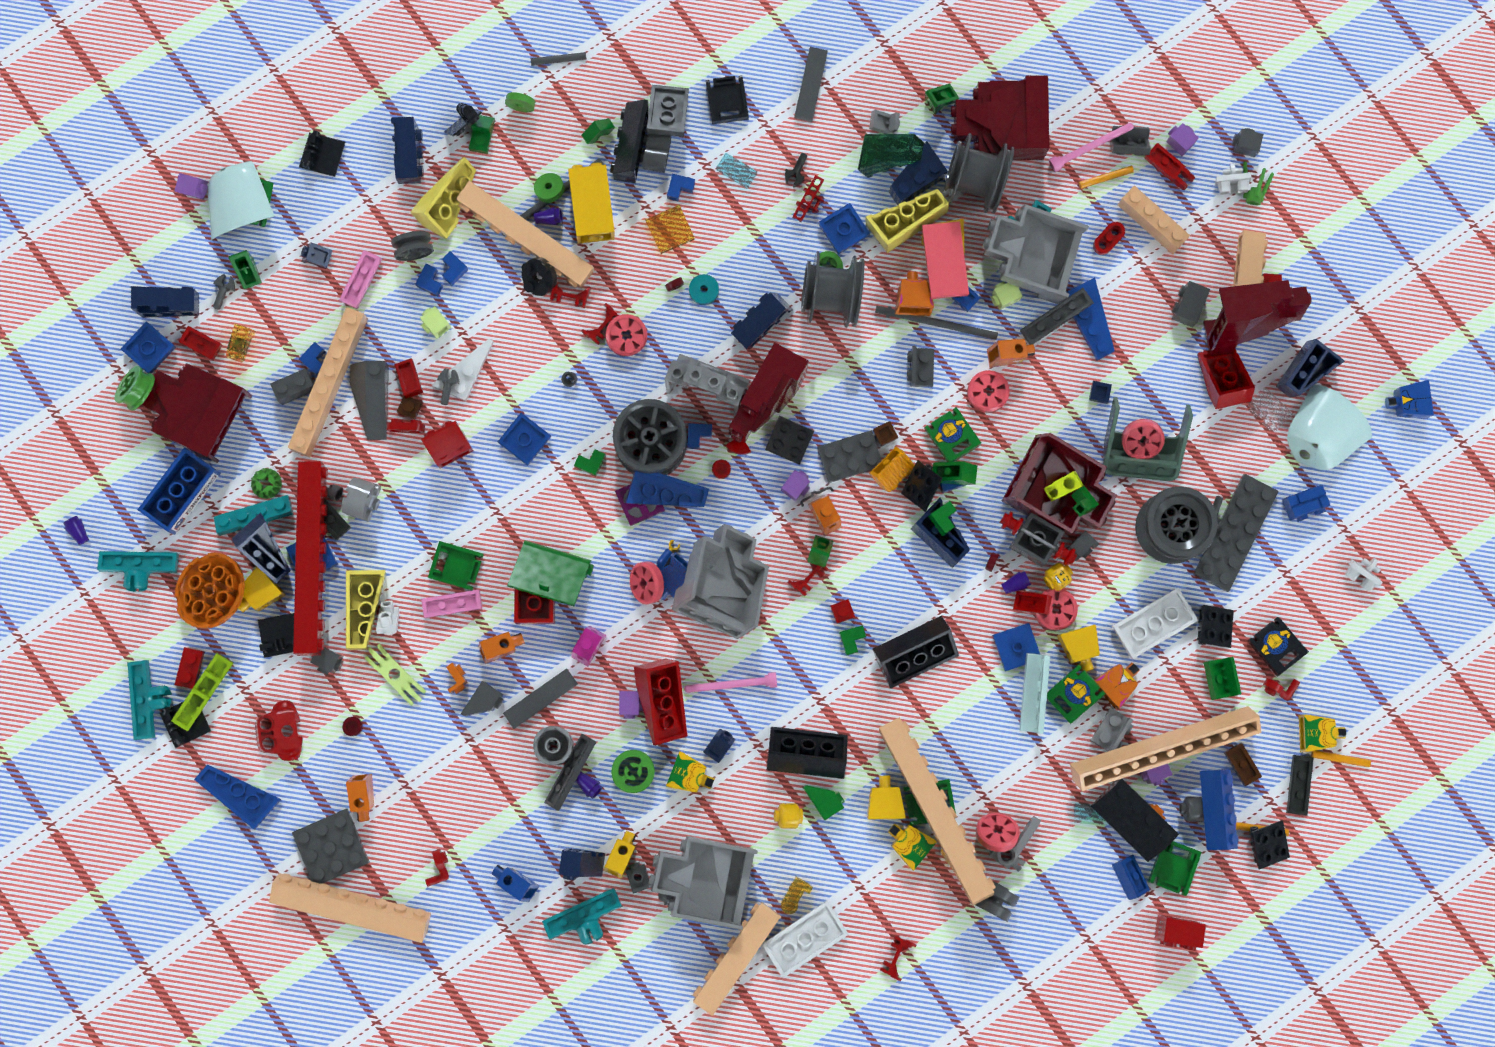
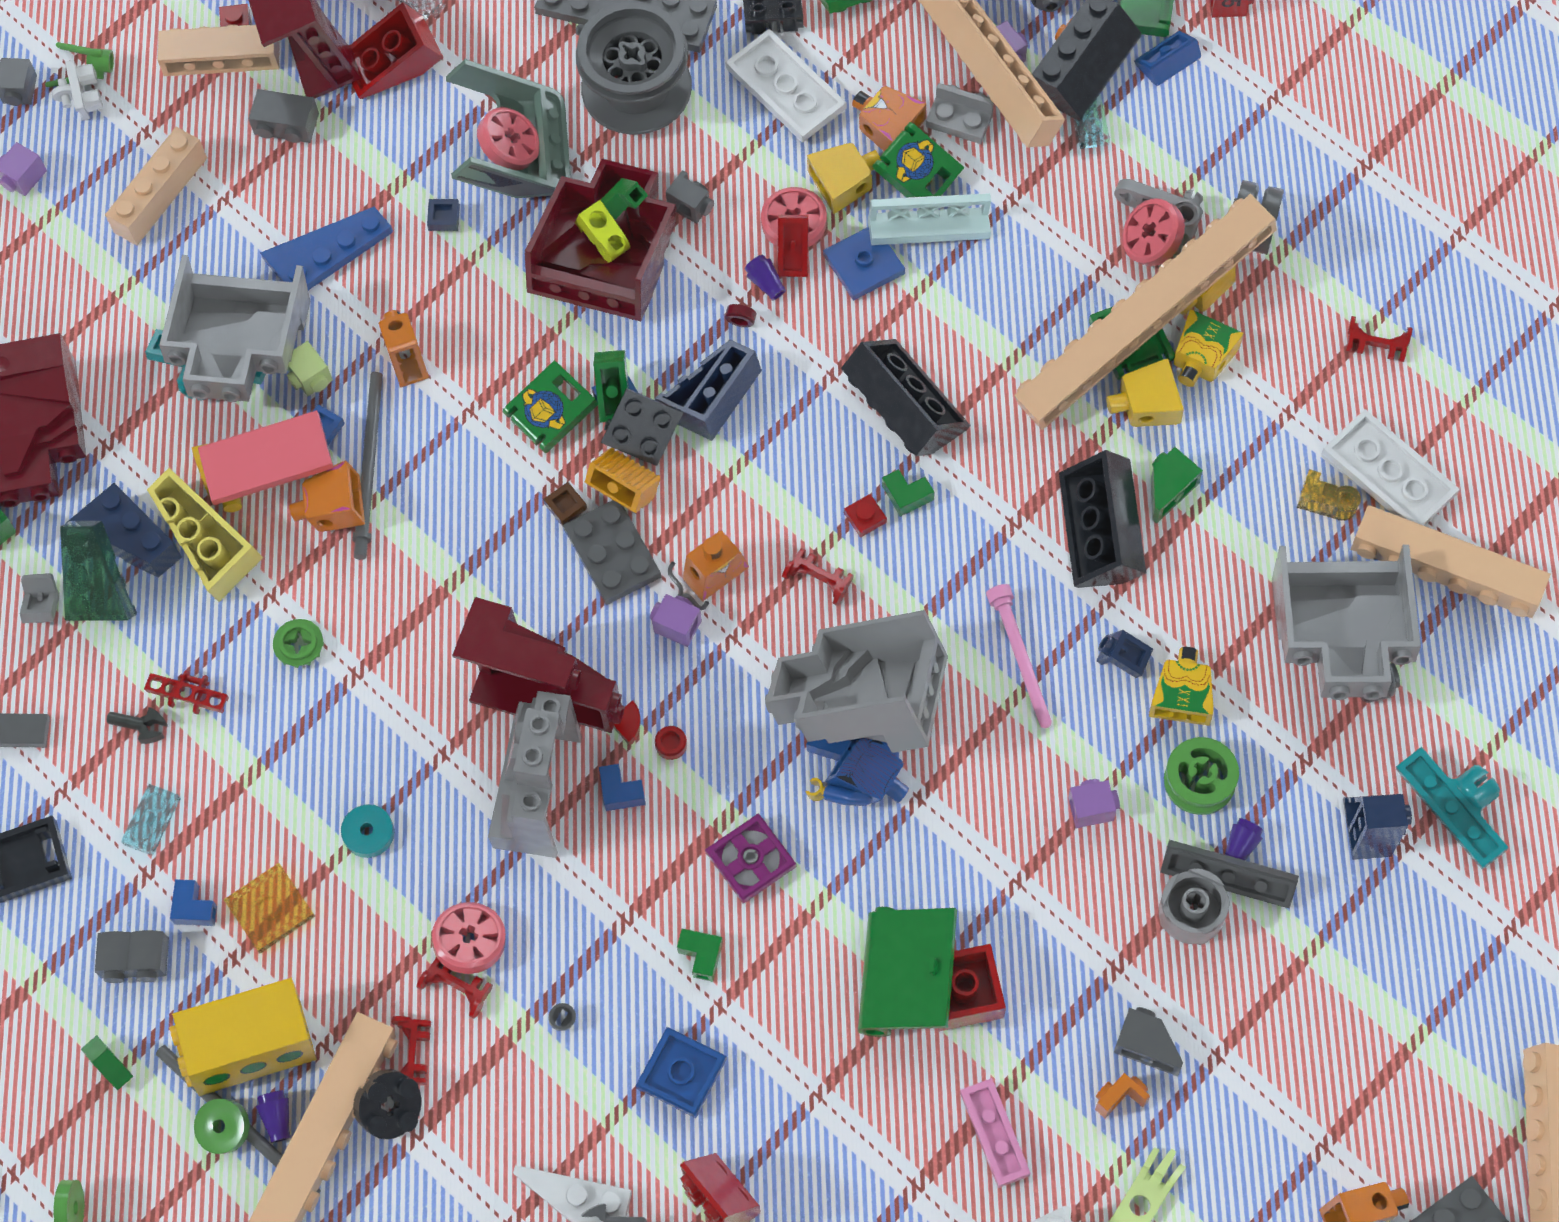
camera: 90 degrees left, 15 degrees down
(440, 859) = (1433, 1053): red plate -> none
(459, 566) = (928, 1138): green container -> none
(491, 649) = (1052, 1032): orange torso -> none
(521, 887) = (1440, 906): blue torso -> none
(540, 698) = (1119, 951): dark grey tile -> none
(588, 645) = (1014, 887): dark pink torso -> none
(616, 862) = (1344, 763): yellow torso -> none
(630, 142) = (117, 997): black slope -> none
(638, 886) = (1365, 744): dark grey brick -> none
(652, 590) = (872, 804): coral wheel -> none
(656, 412) = (667, 892): dark grey wheel -> none
(662, 699) = (1071, 751): red slope -> none
(665, 490) = (726, 821): blue wing -> none
(667, 110) = (57, 947): dark grey plate -> none
(674, 284) = (367, 877): dark red tile -> none
(760, 319) = (408, 723): dark blue wedge -> none
(788, 815) = (1208, 528): yellow head -> none
(789, 440) = (604, 642): black hinge -> none
(820, 551) = (777, 556): green slope -> none
(833, 289) = (341, 603): dark grey wheel -> none
(844, 228) = (230, 629): blue plate -> none
(921, 367) = (446, 473): dark grey bracket -> none
(941, 520) = (688, 385): green piece -> none
(979, 173) = (114, 427): dark grey wheel -> none
(996, 399) = (452, 375): coral wheel -> none
(1037, 539) = (694, 253): dark grey brick -> none
(1056, 316) = (333, 292): dark grey tile -> none
(1058, 162) = (79, 335): bright pink piece -> none
(1058, 576) = (744, 220): yellow head -> none
(1105, 177) = (93, 266): light orange bar -> none
(1108, 238) = (196, 244): red plate -> none
(1132, 142) = (31, 238): dark grey bracket -> none
(1169, 166) = (65, 181): red hinge -> none

